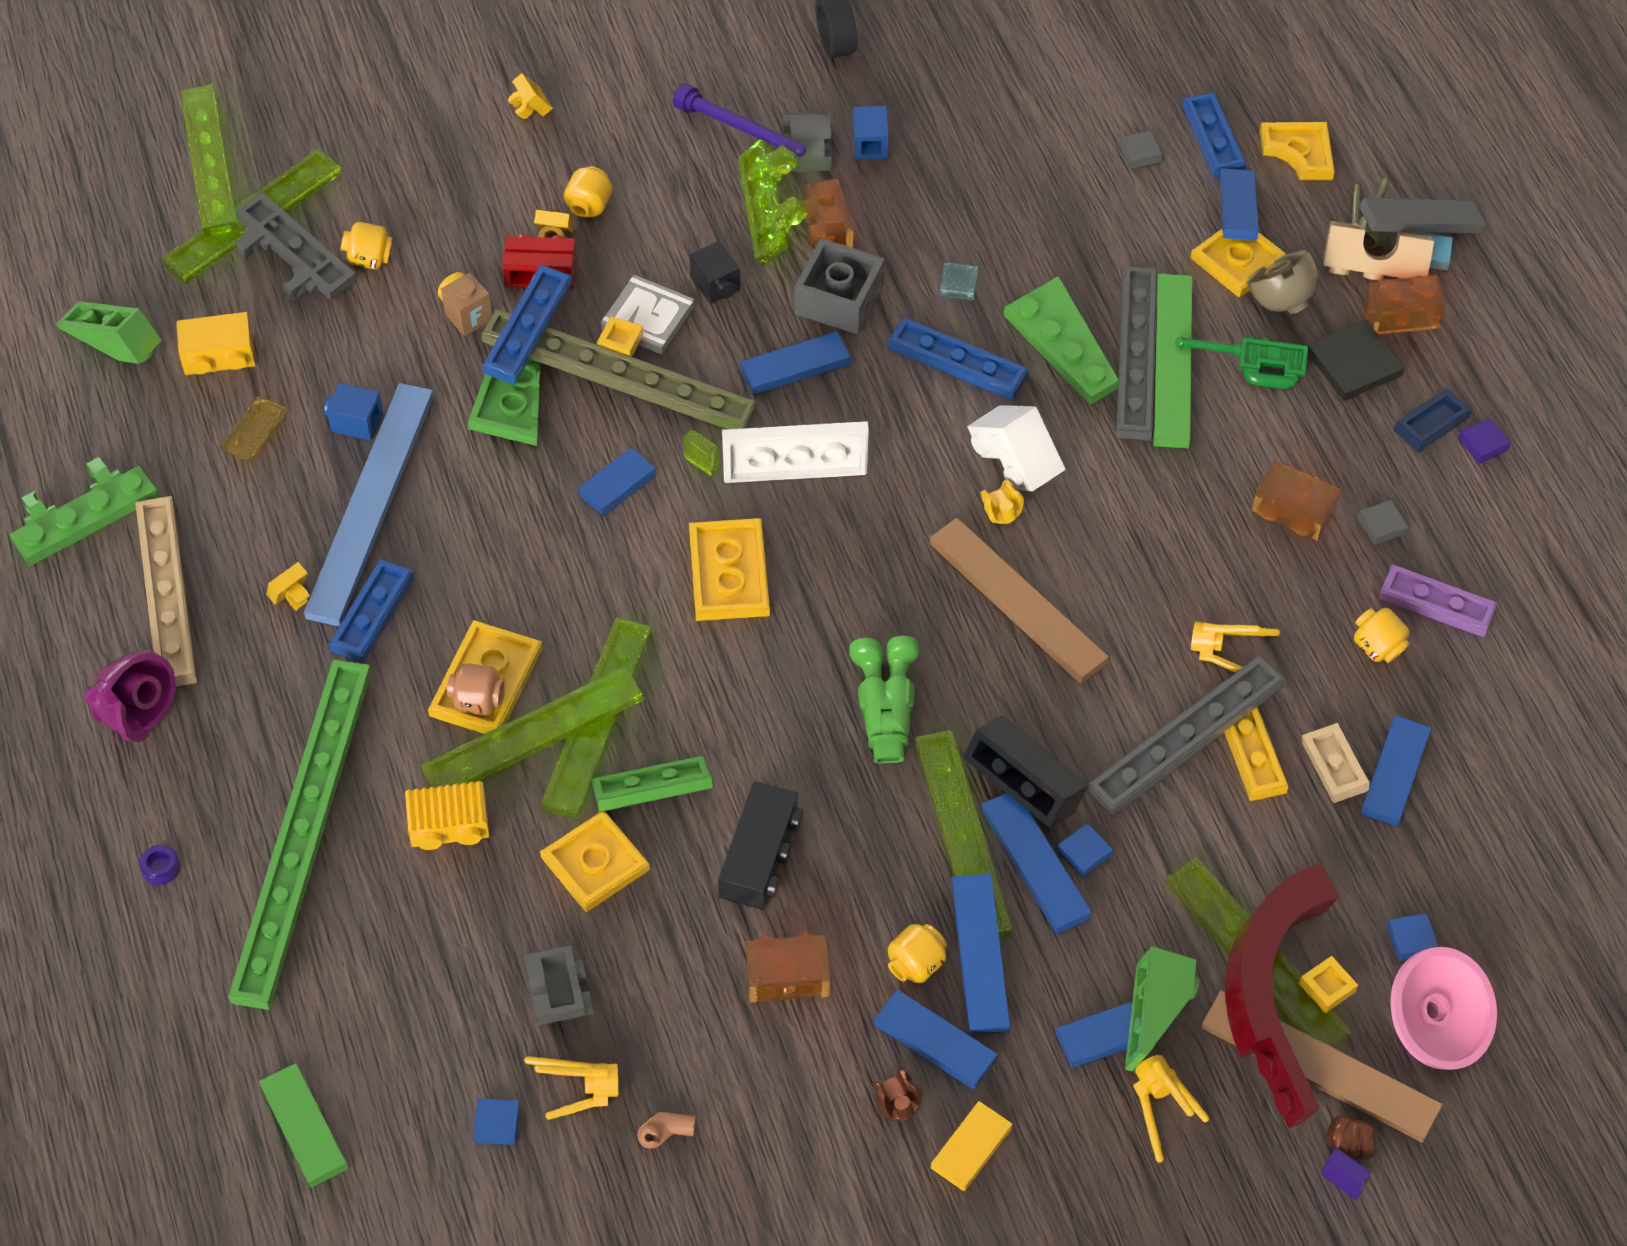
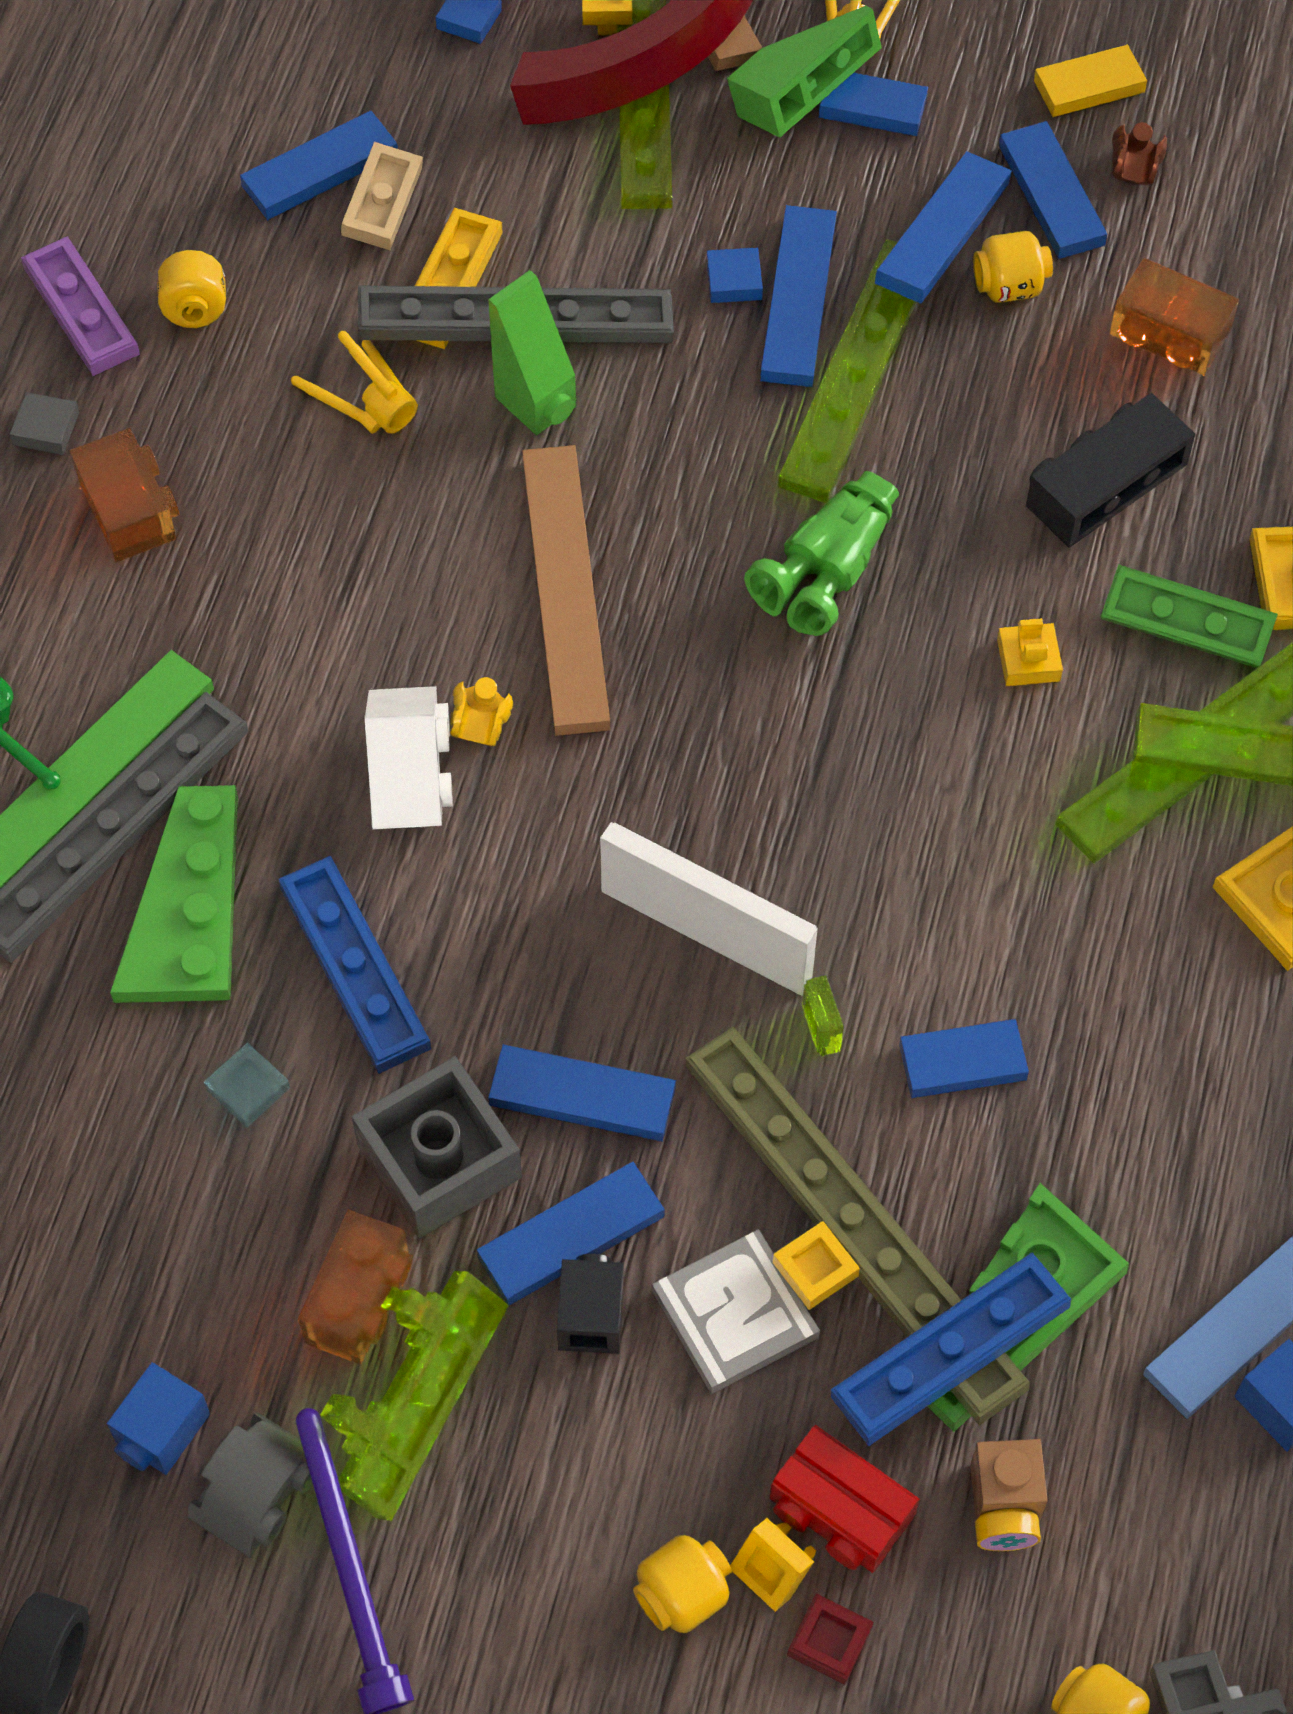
camera: 145 degrees left, 5 degrees up
(509, 219) = (830, 1638): none -> dark red tile
(729, 569) = (897, 843): yellow tile -> none
(730, 713) = (1029, 653): none -> yellow tile
(750, 304) = (576, 1226): none -> blue tile
(1025, 771) = (738, 367): black brick -> none
(1138, 682) = (529, 357): none -> bright green slope

